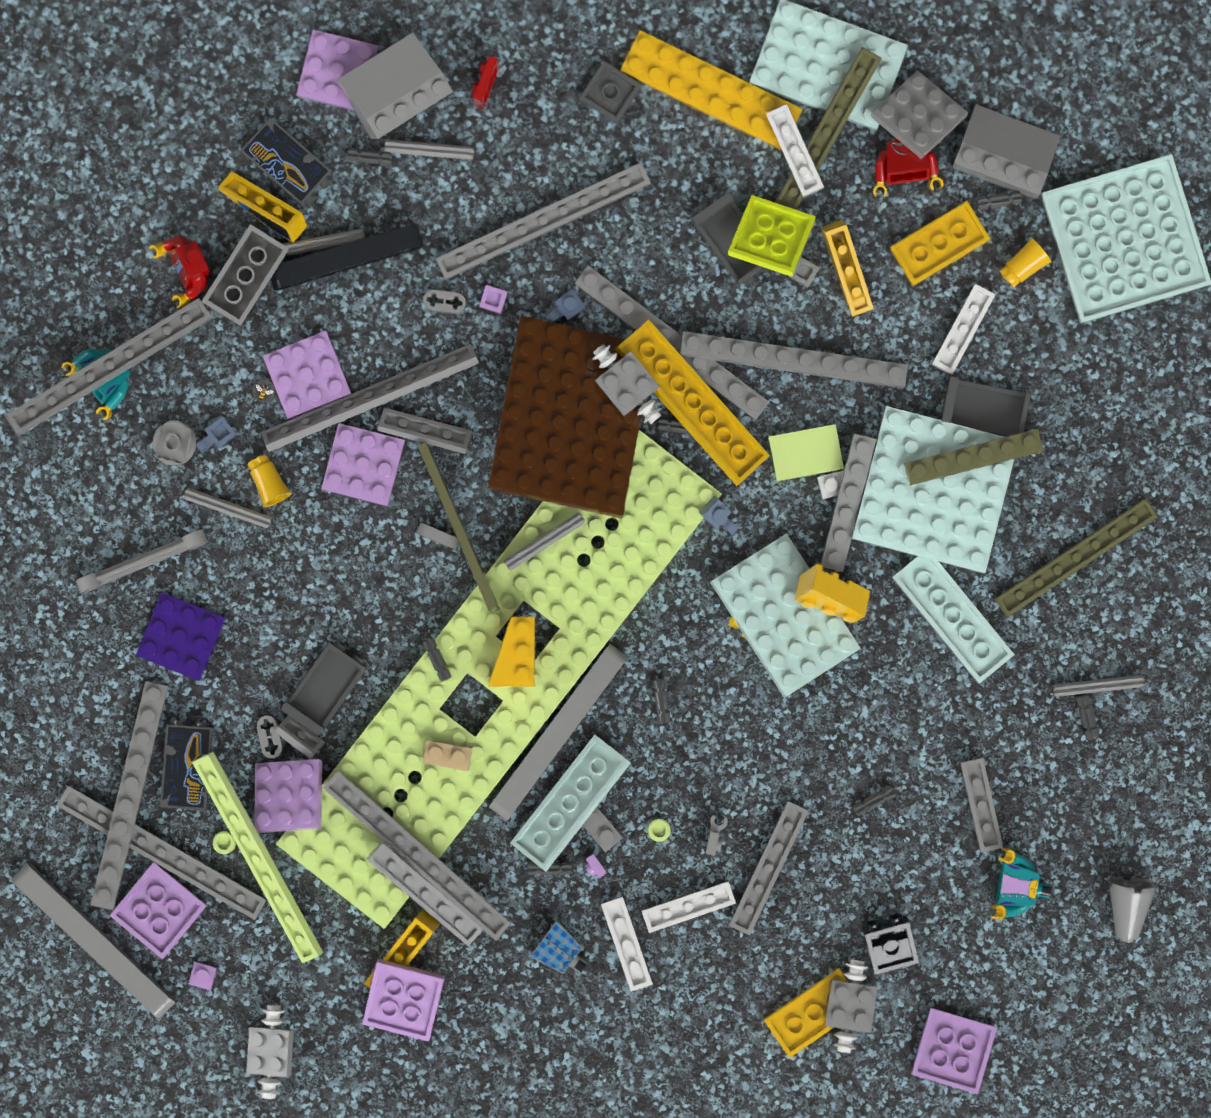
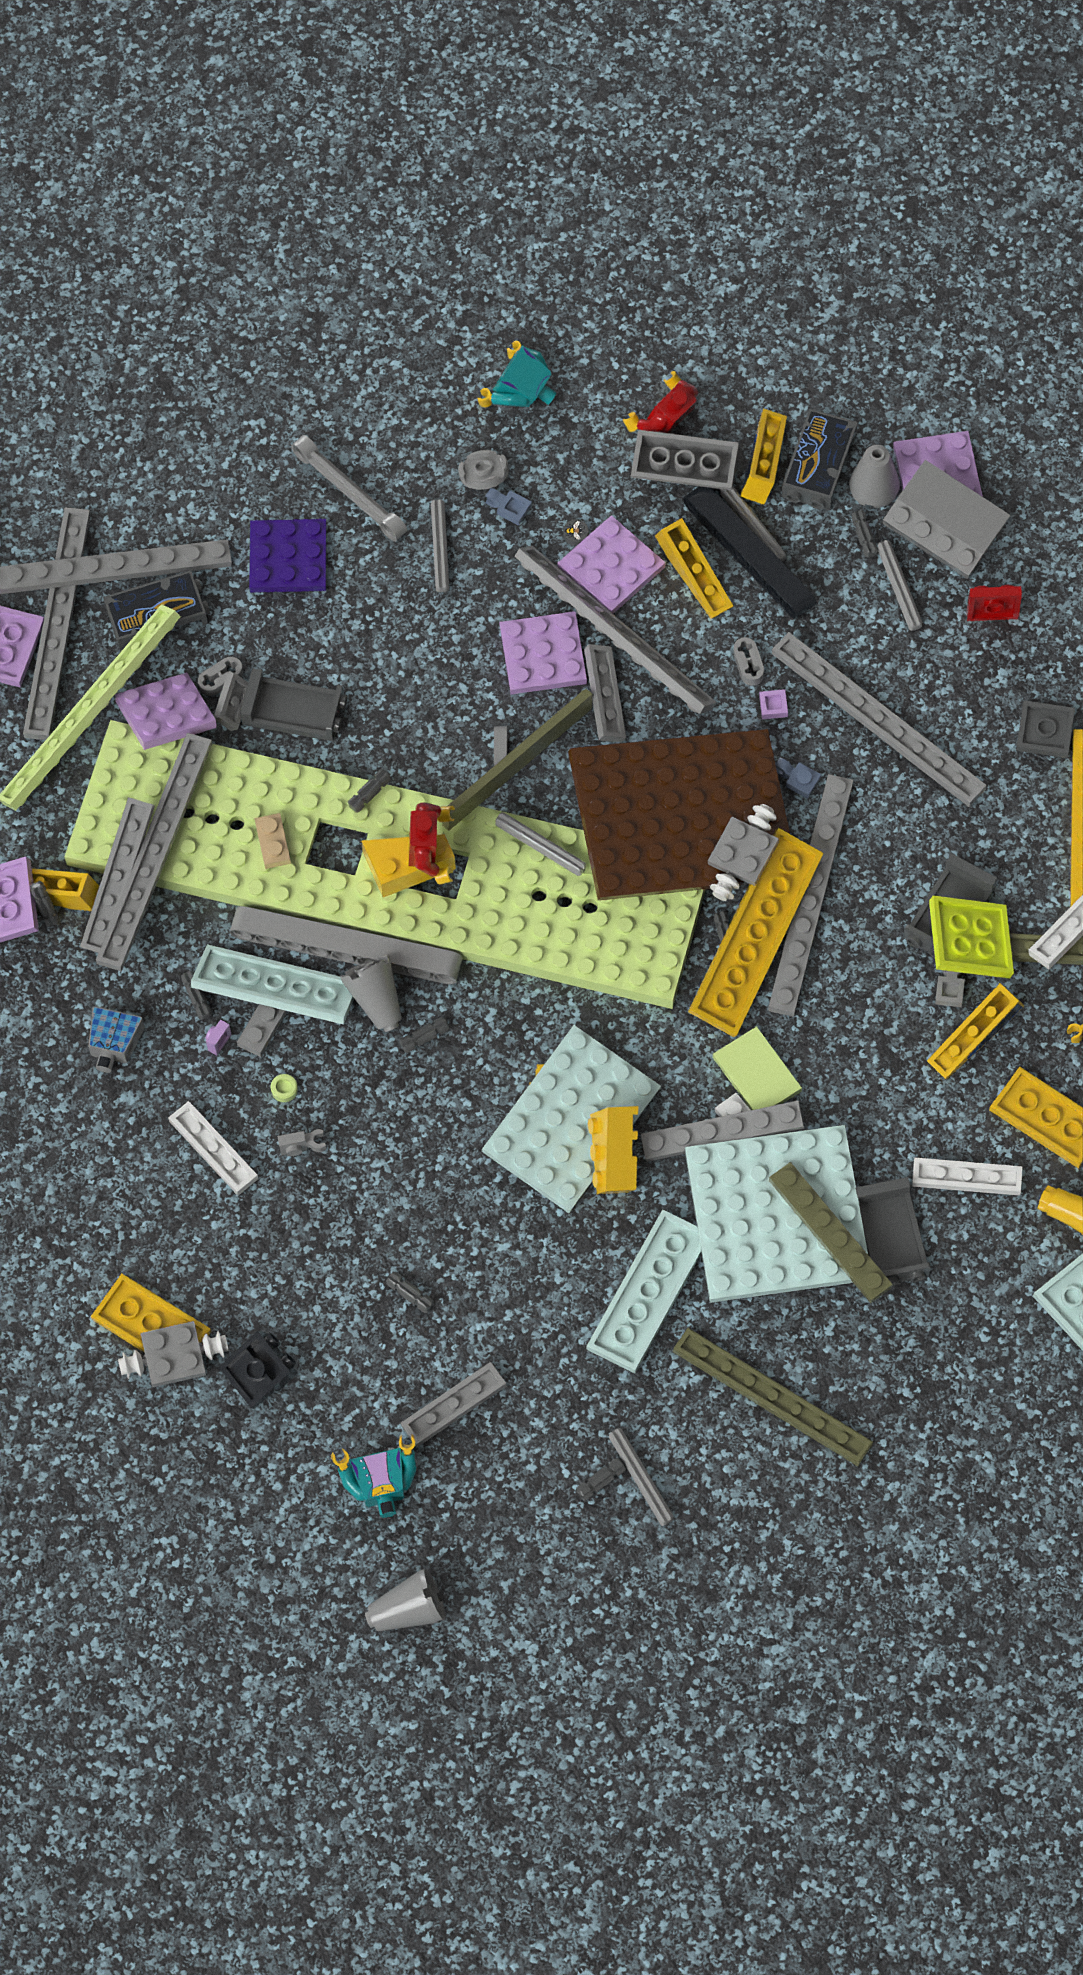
camera: 70 degrees right, 20 degrees down
(108, 367) = (531, 371): light grey plate -> none
(224, 842) = (89, 675): yellowish green tile -> none
(268, 481) = (483, 569): yellow plant -> none
(326, 127) = (875, 478): none -> light grey cone
(342, 309) = (693, 567): none -> yellow slope
(421, 961) = (44, 903): none -> dark grey axle
(514, 636) = (424, 839): none -> red torso
(612, 726) = (375, 991): none -> light grey cone
(626, 944) = (147, 1102): white plate -> none
(716, 515) = (647, 1004): sand blue plate -> none
(768, 868) = (289, 1212): light grey plate -> none
(793, 359) = (851, 1018): light grey plate -> none
(953, 1050) = (168, 1484): lavender plate -> none

